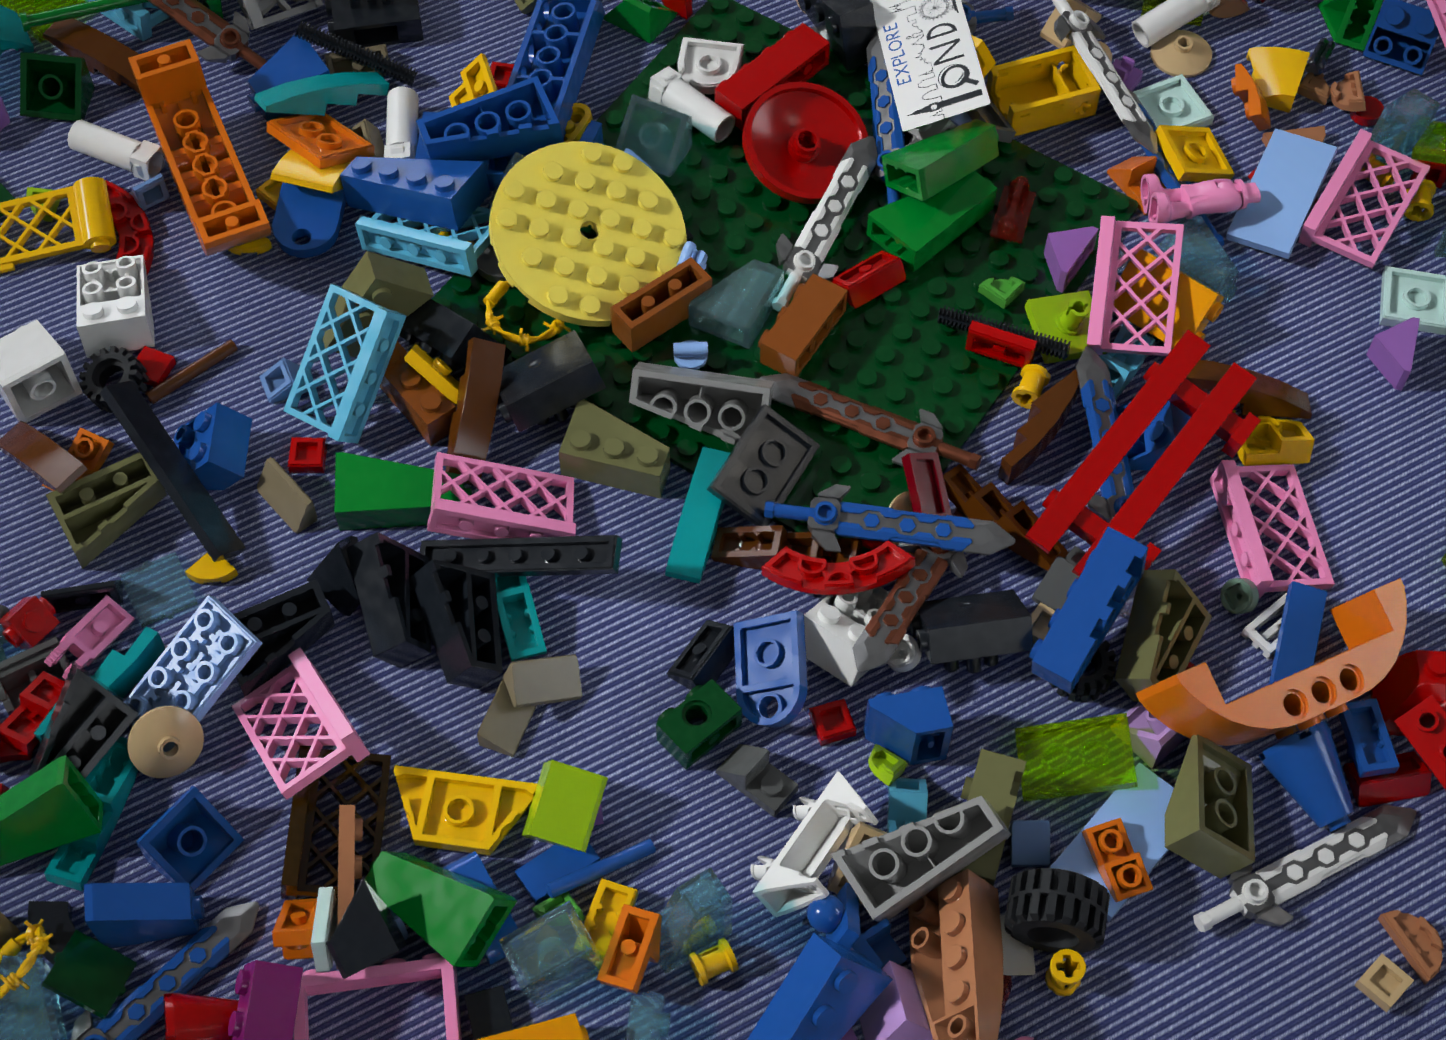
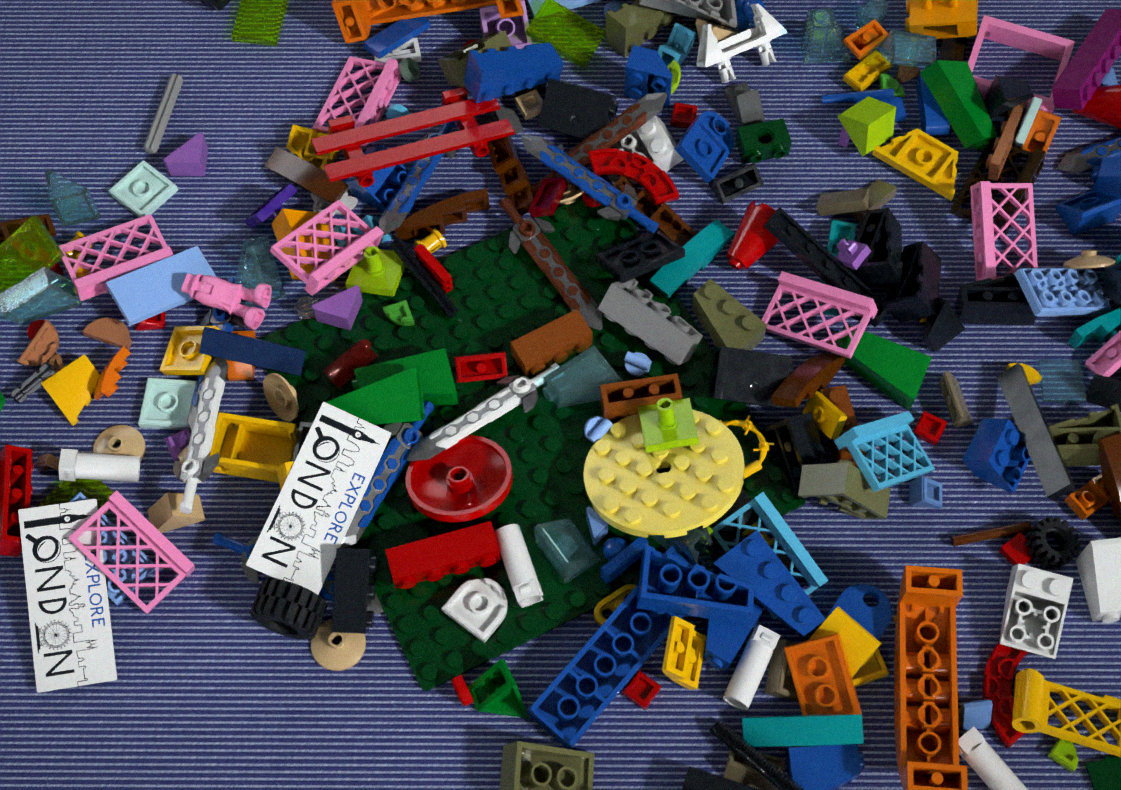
camera: 150 degrees left, 5 degrees up
(491, 582) = (852, 253): none -> medium lavender tile
(607, 273) = (668, 424): none -> lime tile
(638, 587) = (751, 238): none -> red cone
(1055, 145) = (281, 396): none -> tan dish
(1121, 163) = (252, 351): none -> dark blue tile
(1201, 527) = (396, 110): none -> medium azure tile
(1245, 327) = (271, 206): none -> dark purple tile

